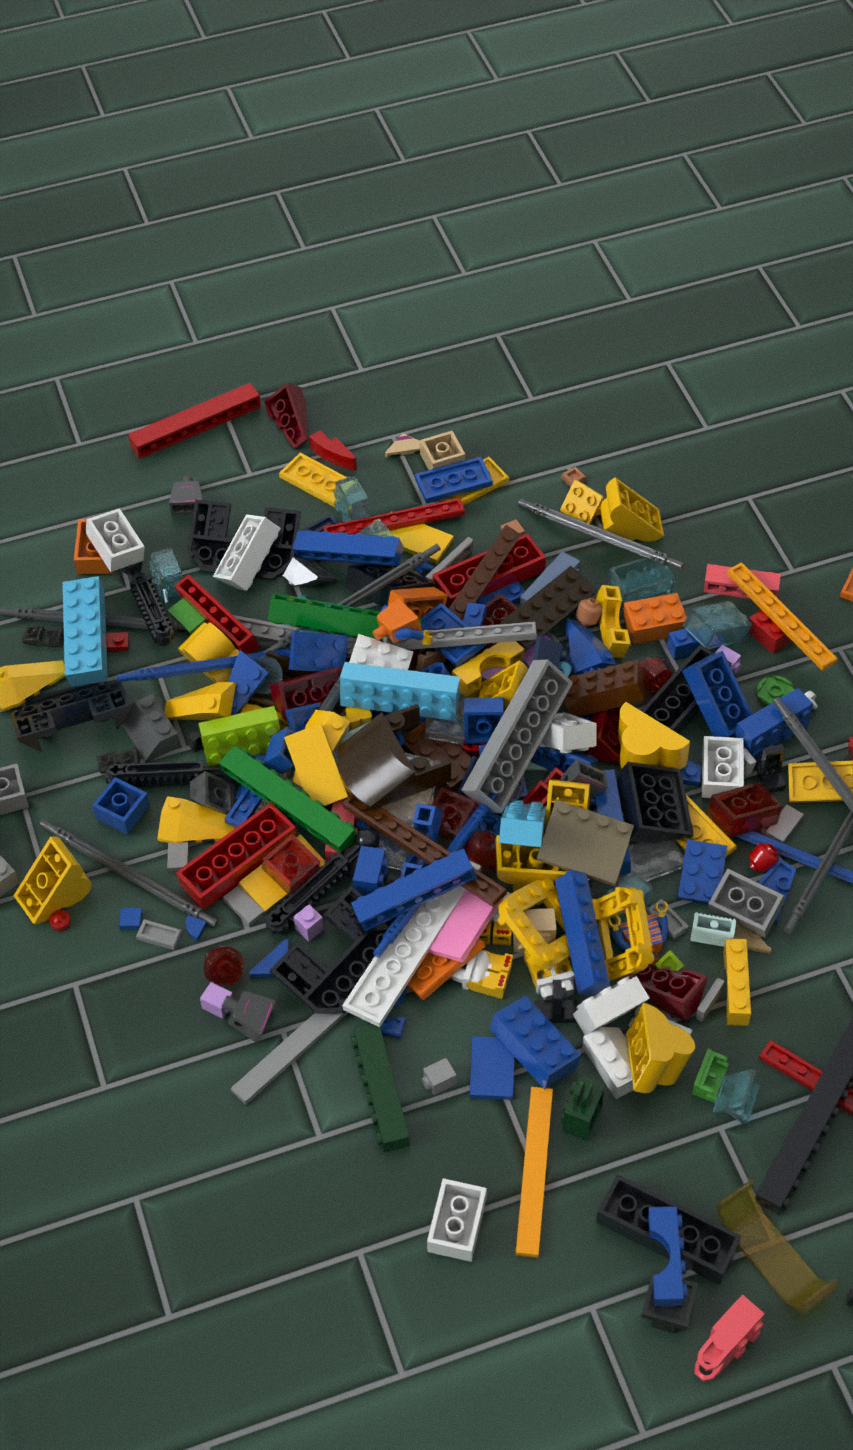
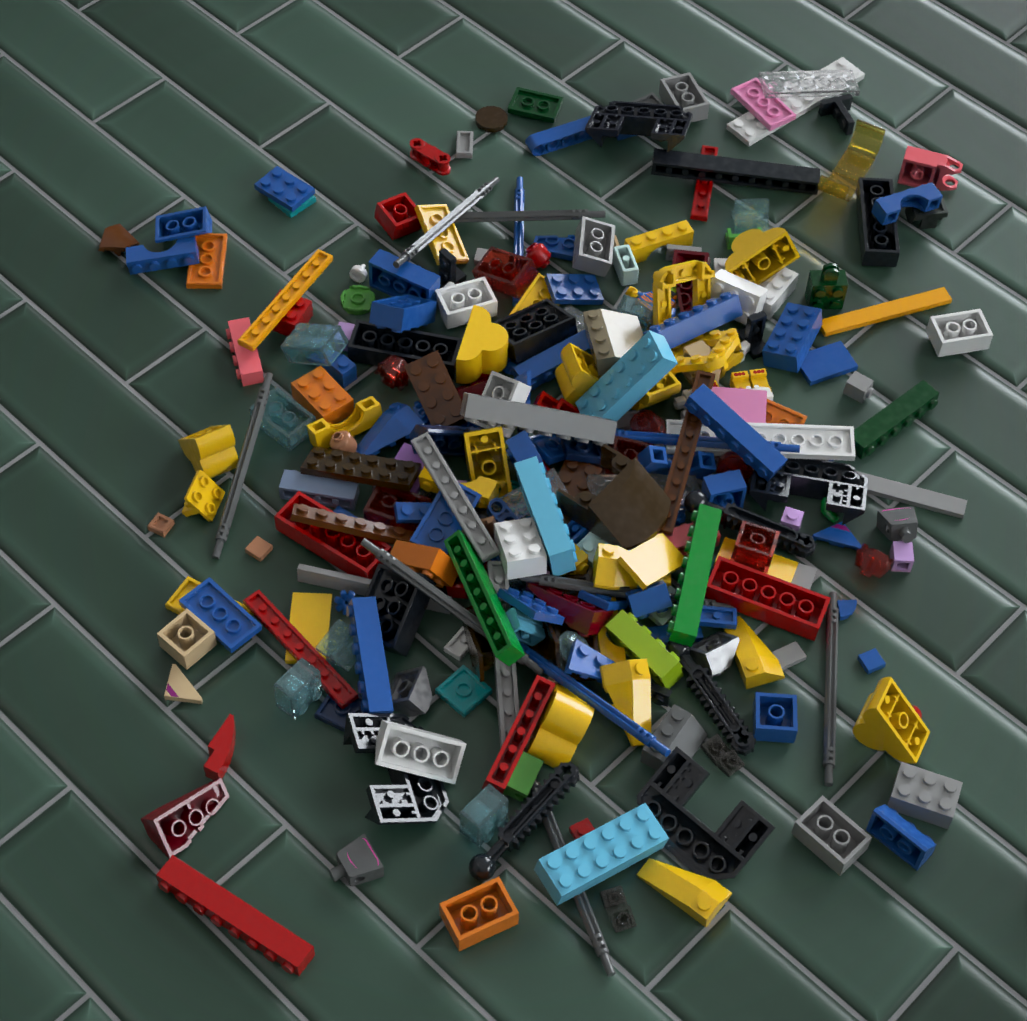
camera: 120 degrees left, 0 degrees up
(115, 540) = (481, 869): white brick -> none
(159, 934) = (870, 632): light grey tile -> none
(312, 477) = (266, 752): yellow tile -> none
(399, 624) = (478, 533): orange torso -> none
(585, 773) = (547, 375): dark grey torso -> none

